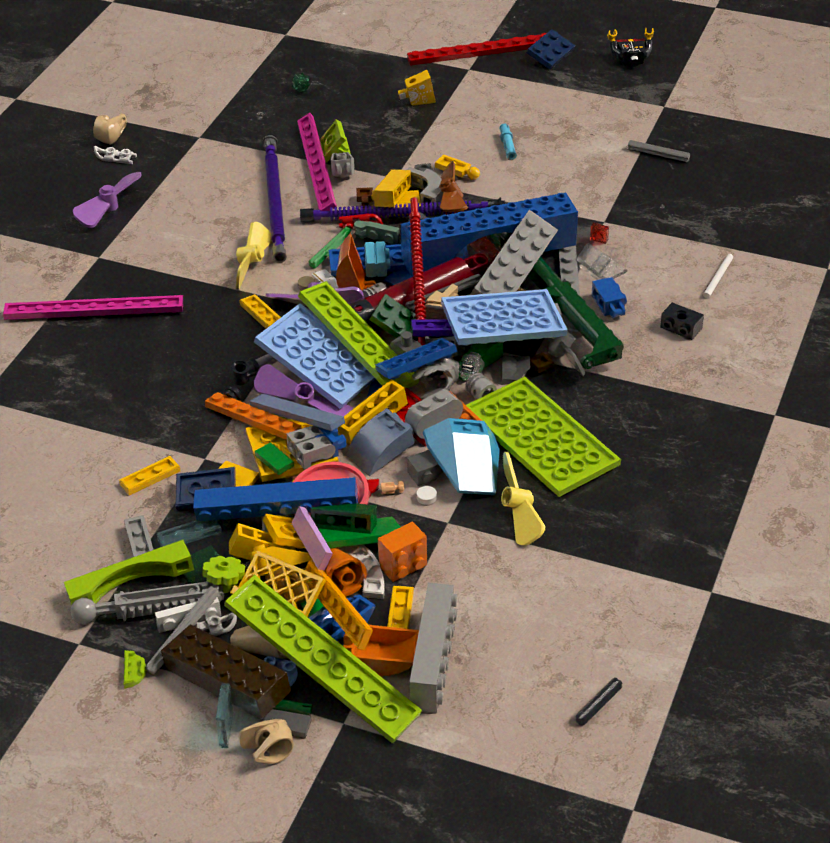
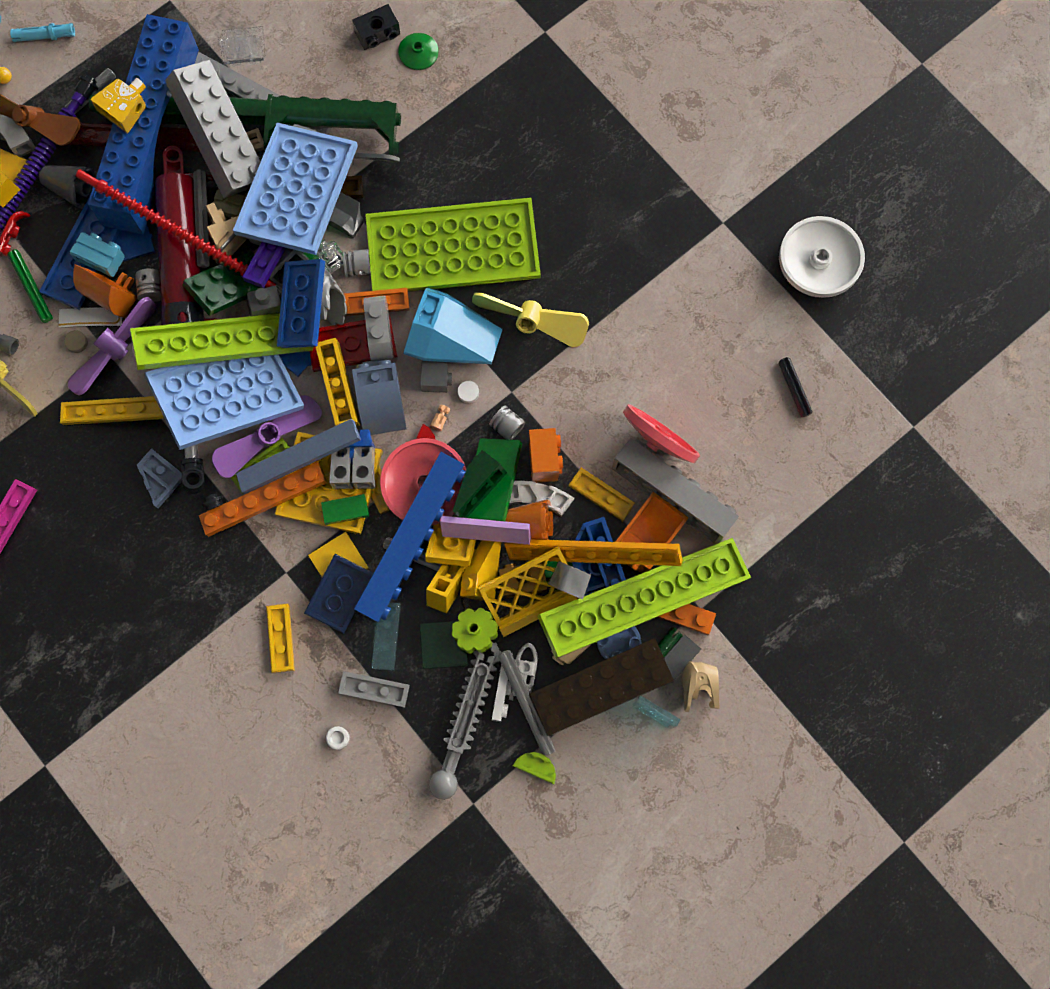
camera: 65 degrees left, 35 degrees up
(88, 539) = (337, 738): none -> white tile
(166, 560) = (416, 769): lime arch -> none
(225, 360) = (159, 477): none -> sand blue wing
(300, 588) = (570, 580): none -> light grey piece
(329, 713) = (691, 618): none -> orange plate
(377, 232) = (40, 226): sand green hinge -> none
(419, 517) = (507, 423): none -> light grey piece
(472, 604) = (659, 435): none -> coral dish
(485, 202) = (121, 103): none -> yellow torso
(525, 179) = (44, 32): none -> medium azure pin
(599, 233) = (193, 15): clear red plate -> none
(609, 297) = (299, 69): blue brick -> none
(687, 354) = (418, 58): none -> green dish
(734, 661) = (821, 256): none -> white dish

